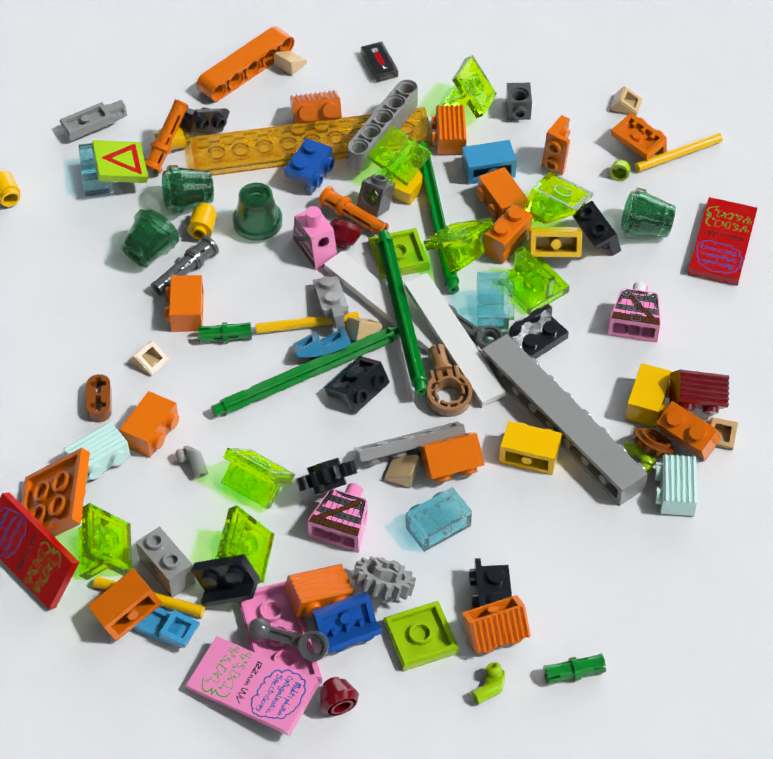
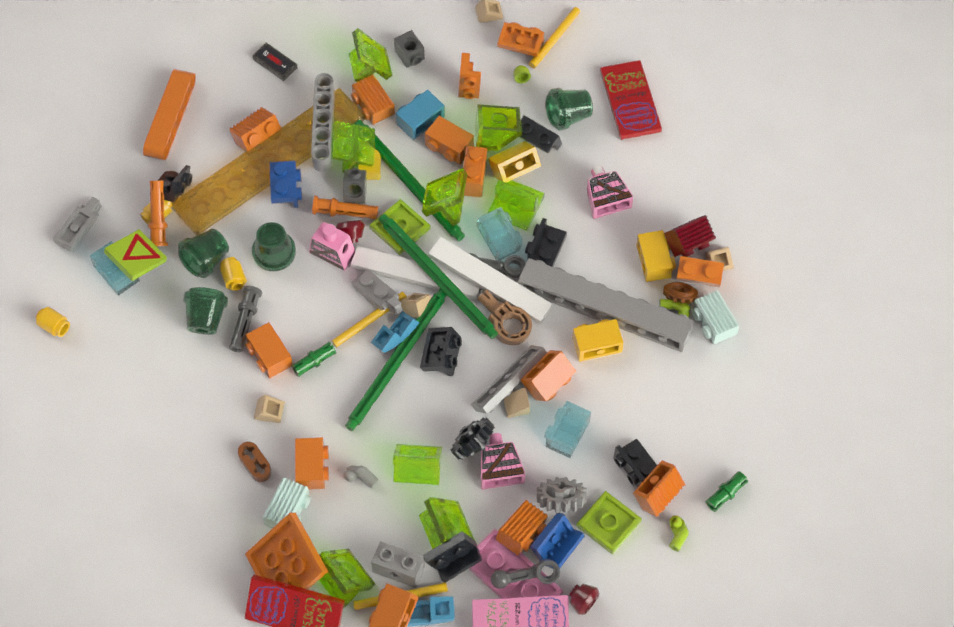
camera: 30 degrees left, 10 degrees up
(288, 61) = (202, 95): tan slope -> none

